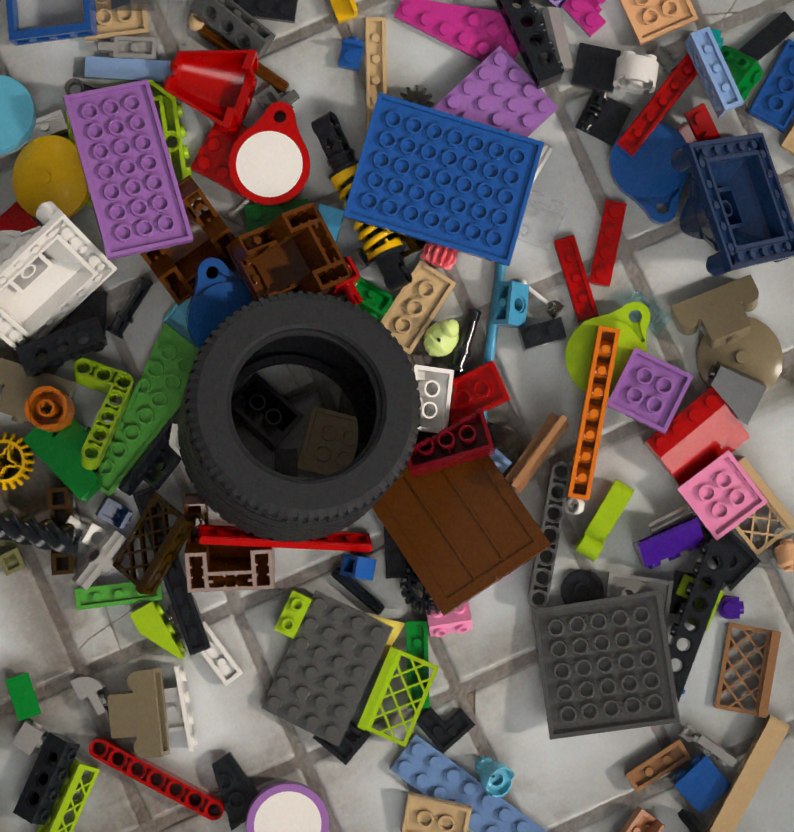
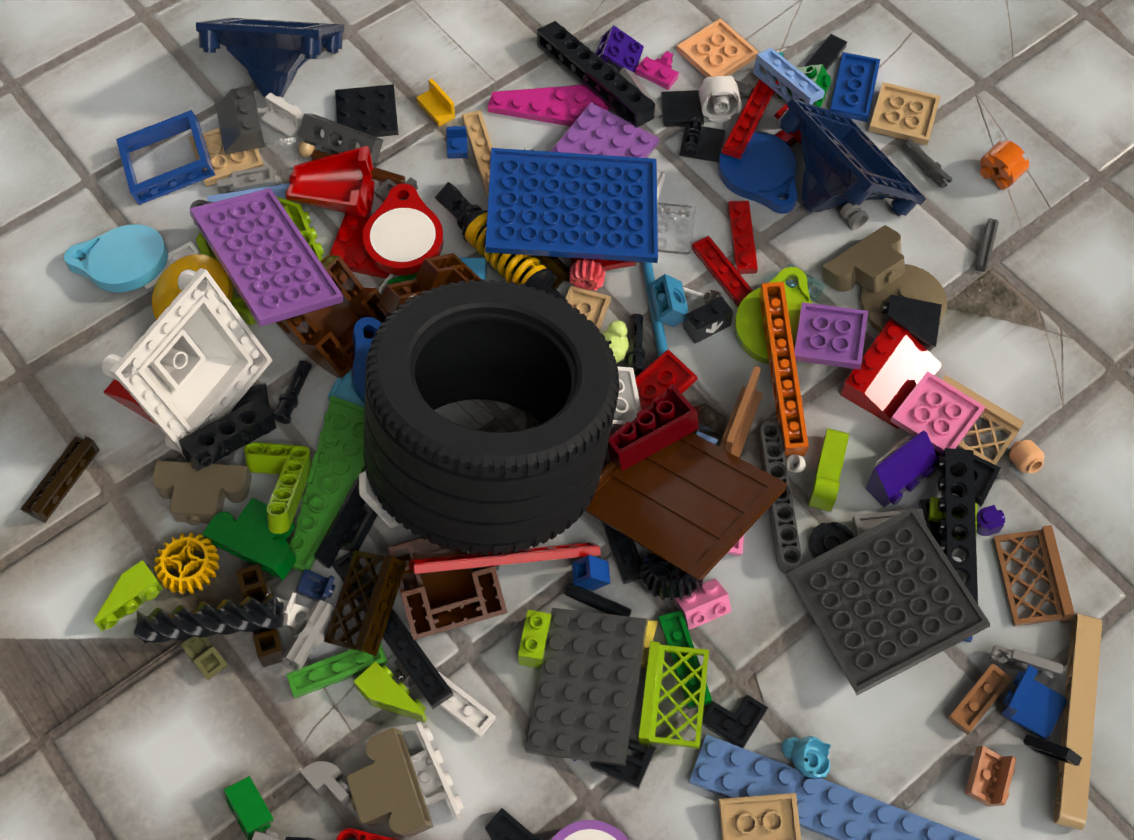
camera: 10 degrees left, 25 degrees down
(42, 400) = (225, 488): orange brick -> none

